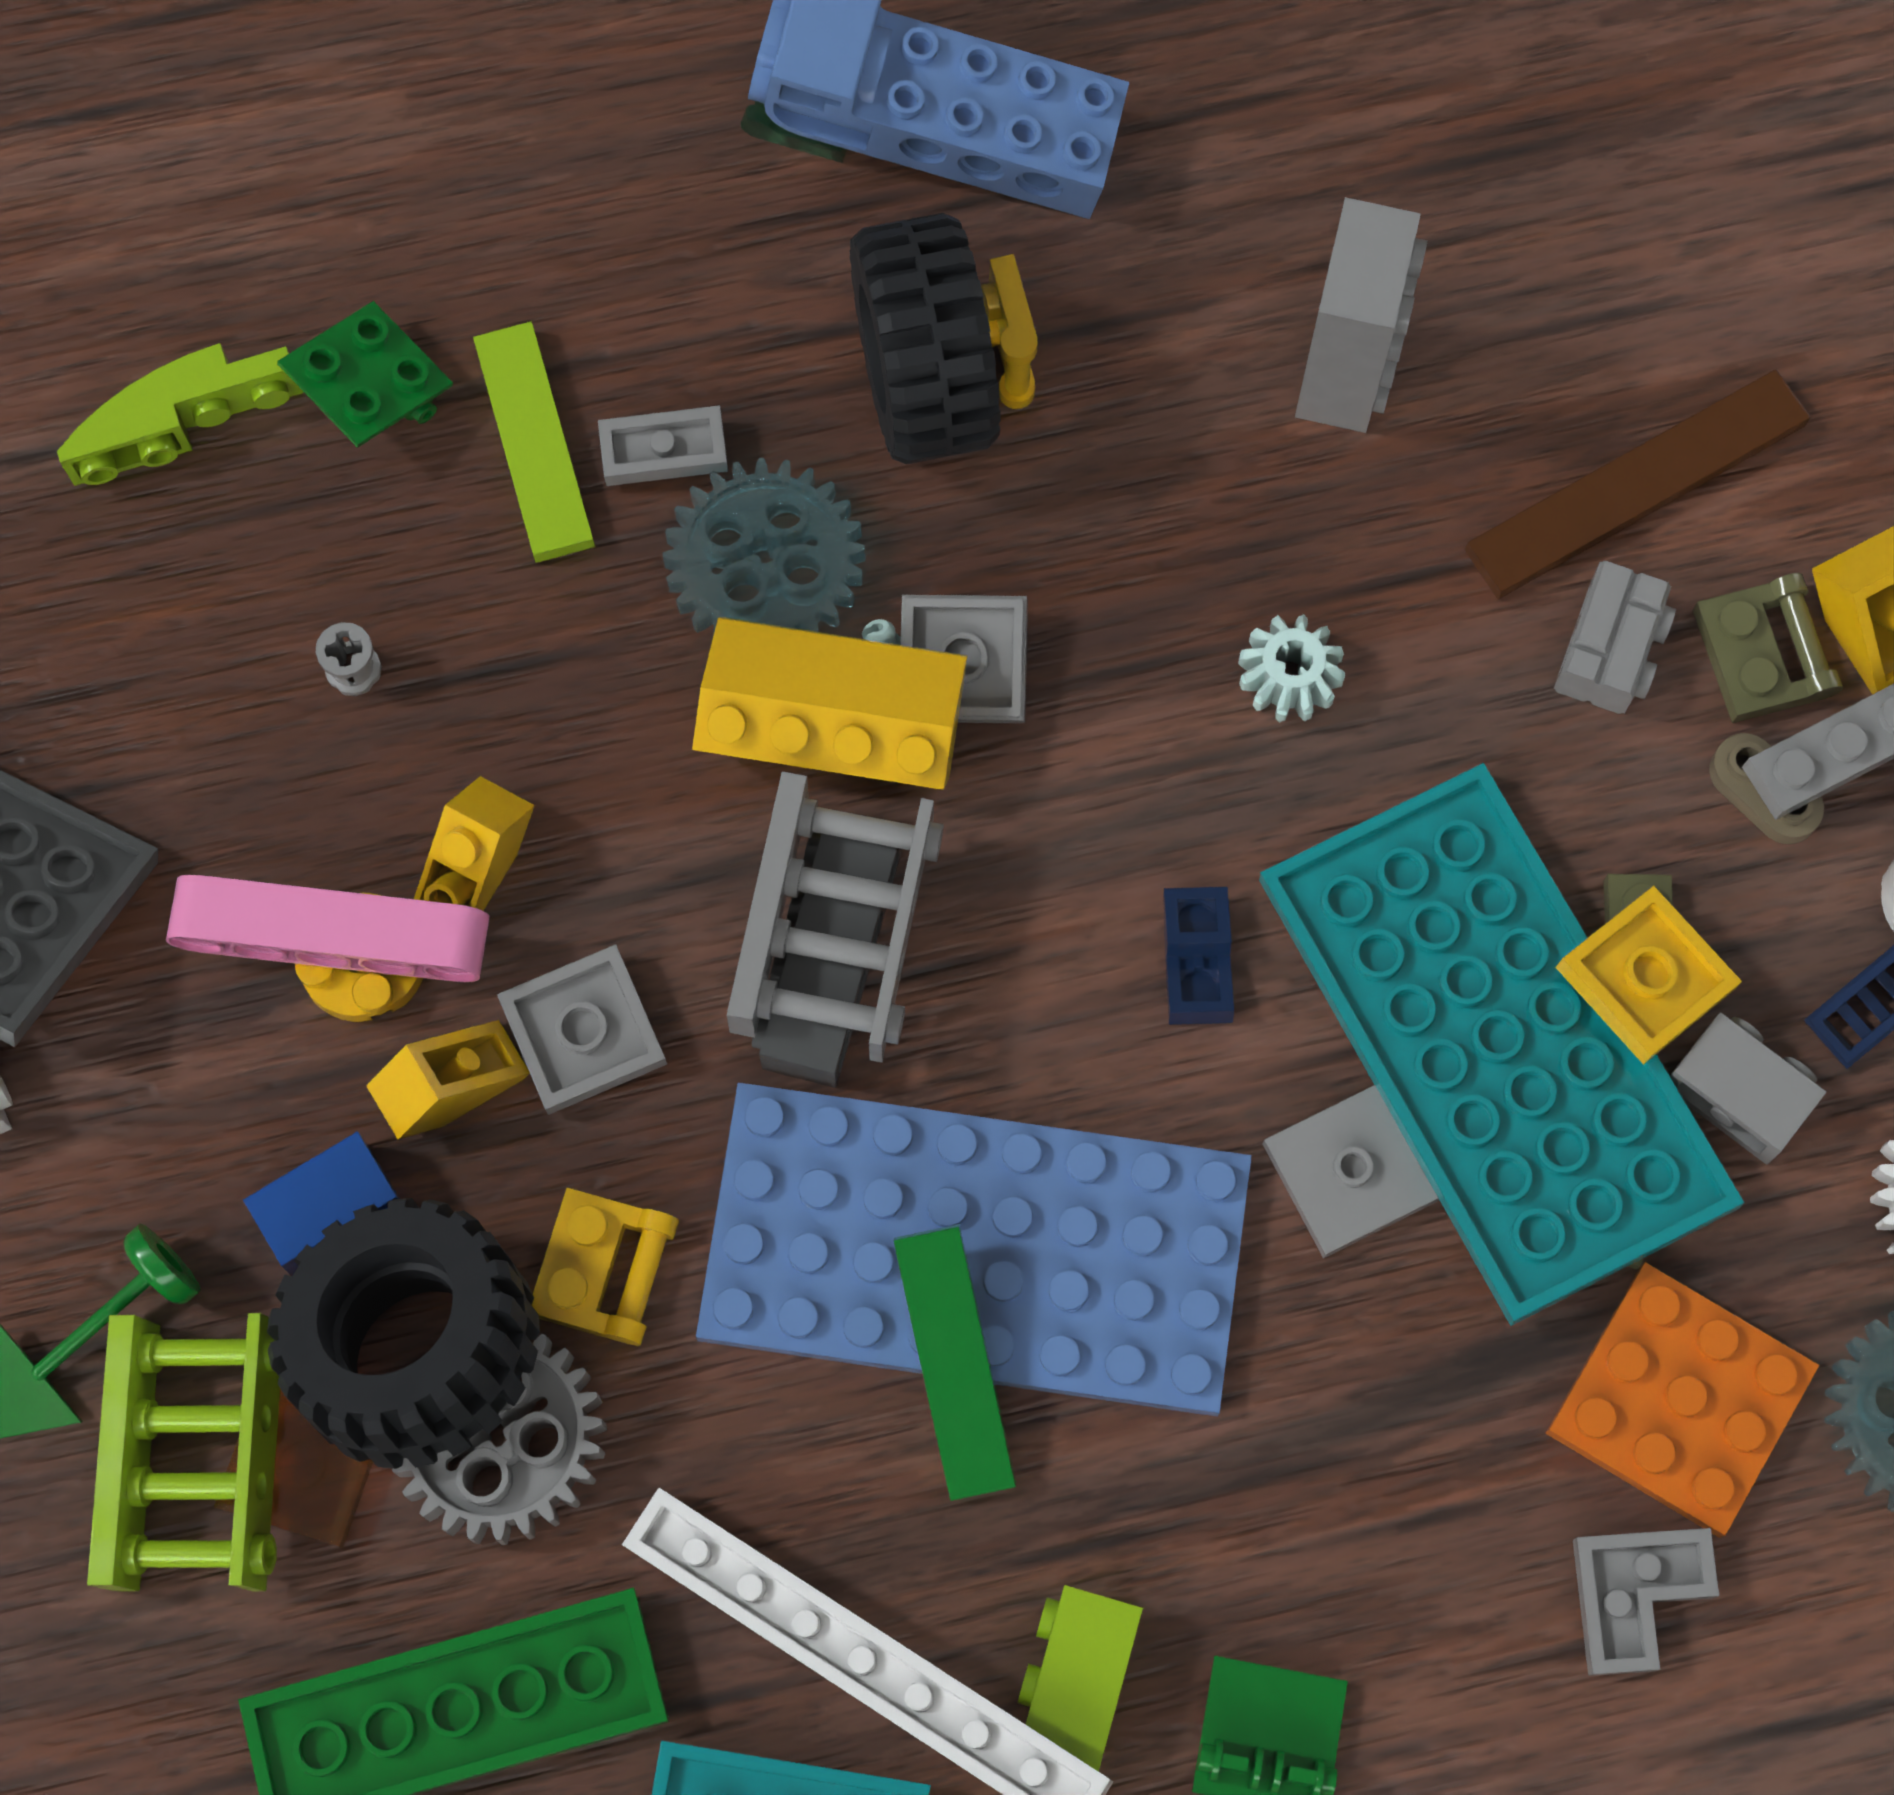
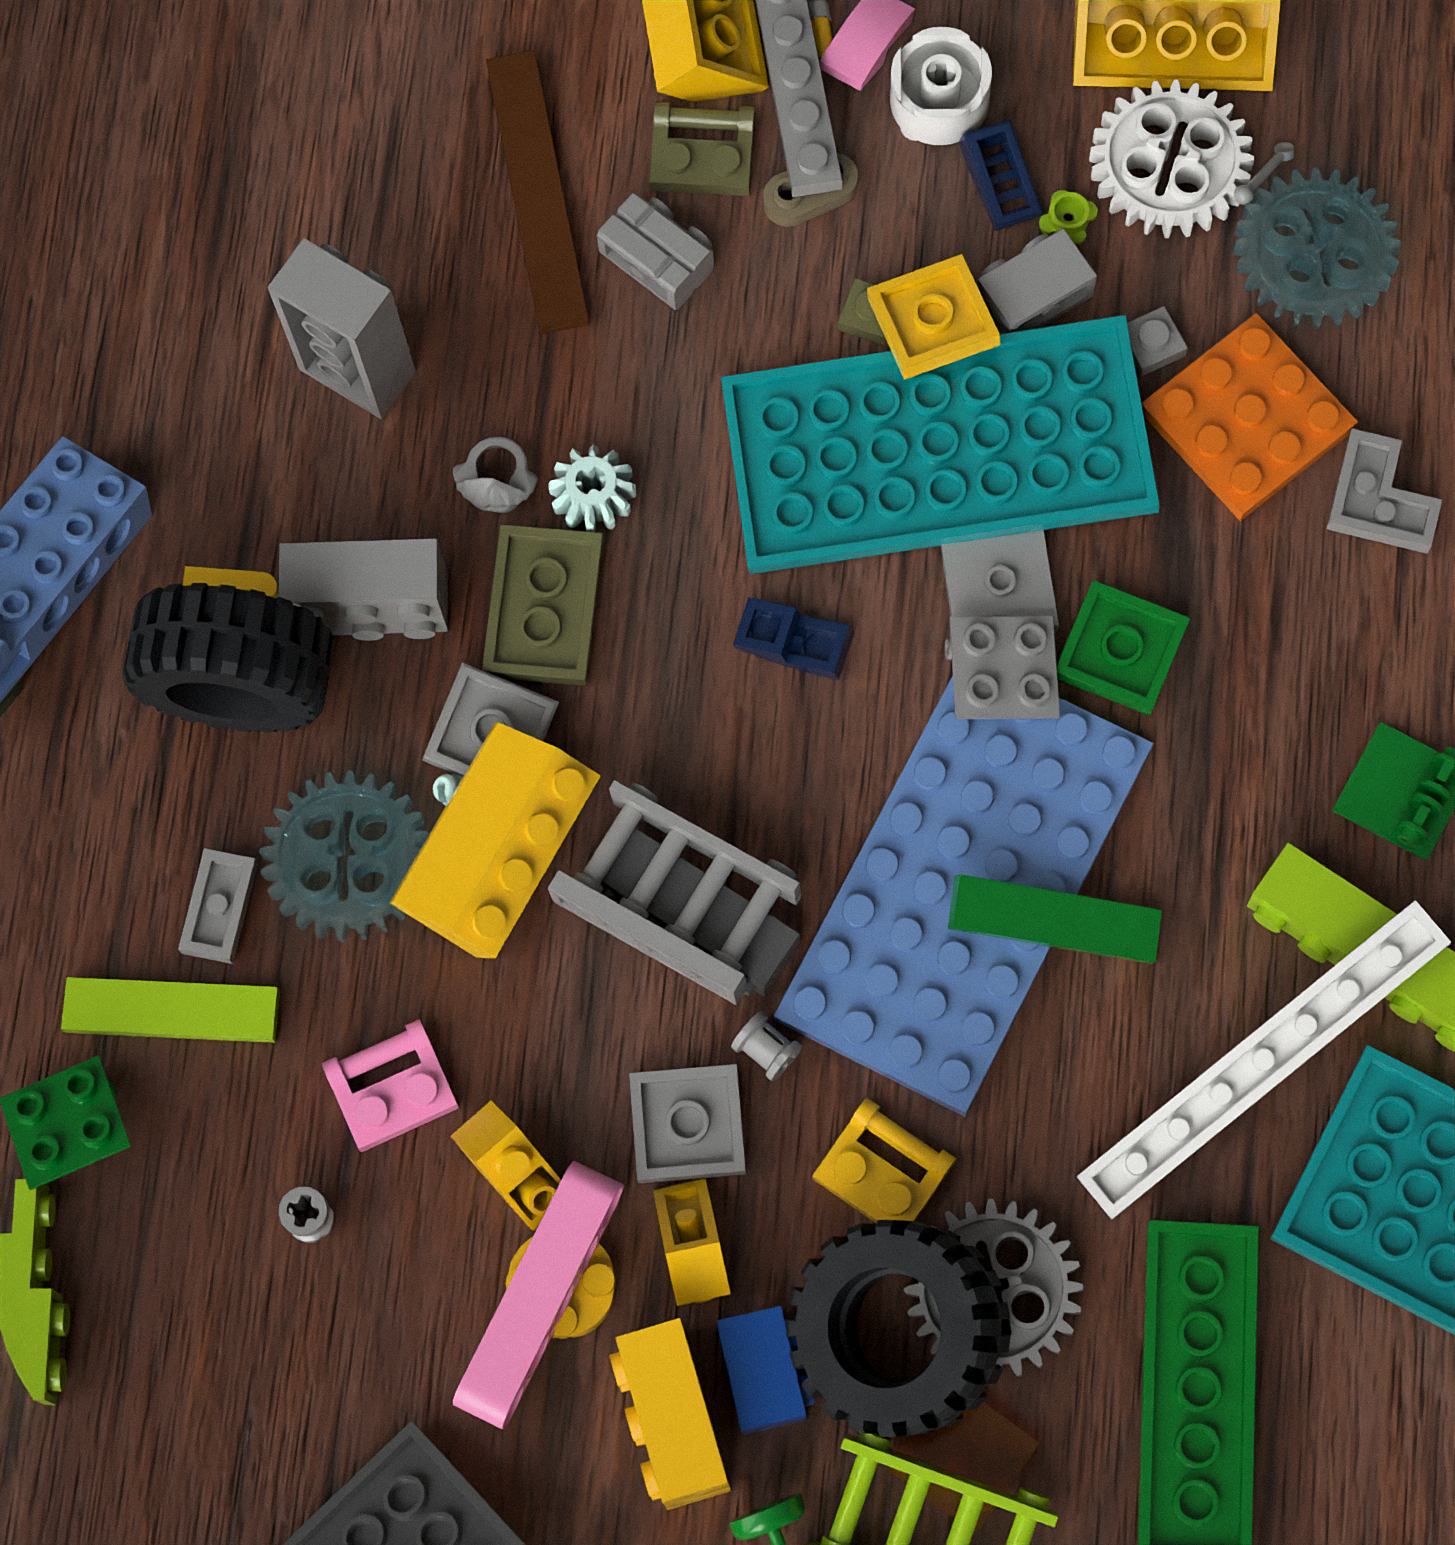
camera: 65 degrees left, 0 degrees up
(234, 1118) = (669, 1415): none -> yellow brick
(506, 709) = (397, 1101): none -> bright pink plate
(699, 1086) = (766, 1046): none -> light grey bush
(1071, 460) = (369, 586): none -> light grey brick
(1133, 664) = (543, 605): none -> olive plate
(1238, 554) = (490, 493): none -> light grey piece
(1242, 1203) = (1003, 667): none -> light grey hinge
(1325, 1337) = (1121, 647): none -> green plate
(1734, 1253) = (1155, 341): none -> light grey plate
(1870, 1090) = (1068, 203): none -> lime plate

